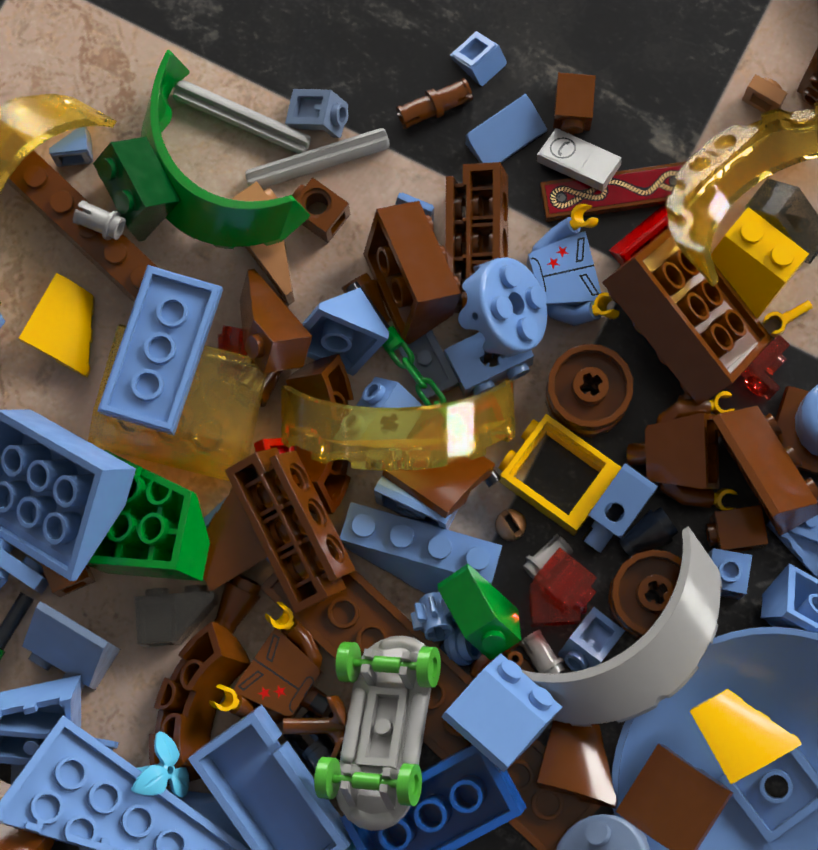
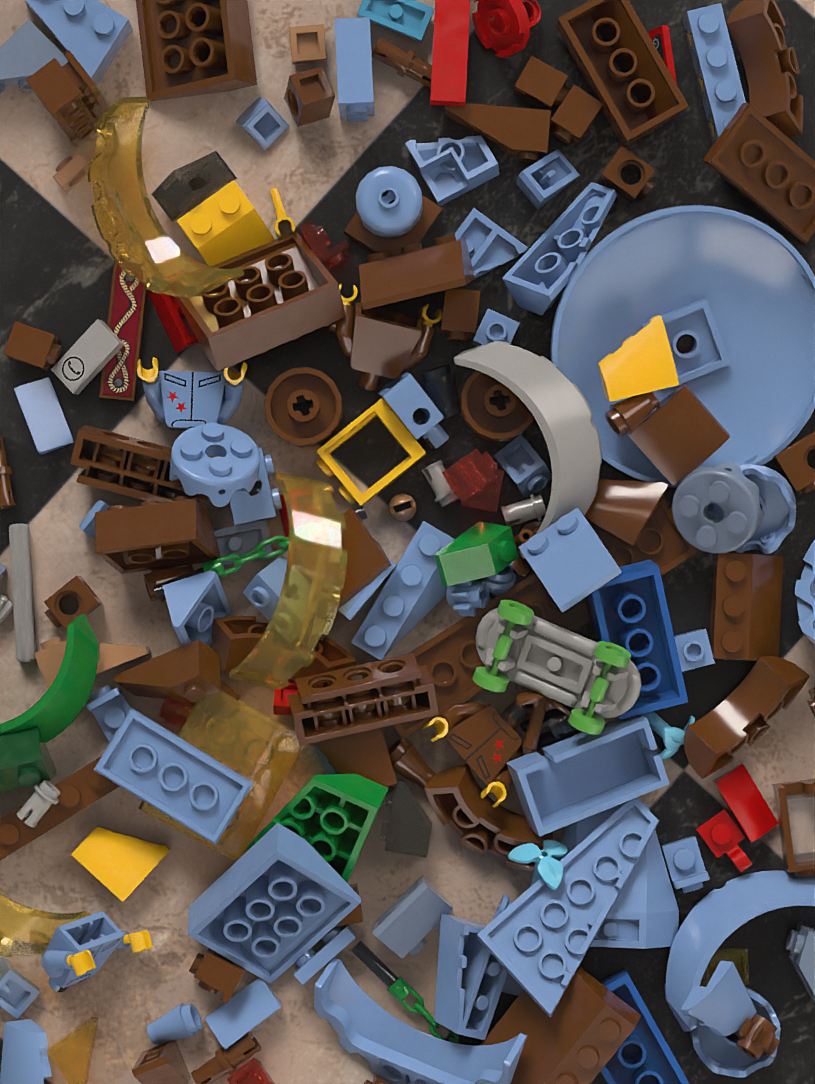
camera: 80 degrees left, 10 degrees up
(222, 271) = (109, 709): none -> medium blue bracket
(684, 740) = (630, 413): none -> reddish brown cone

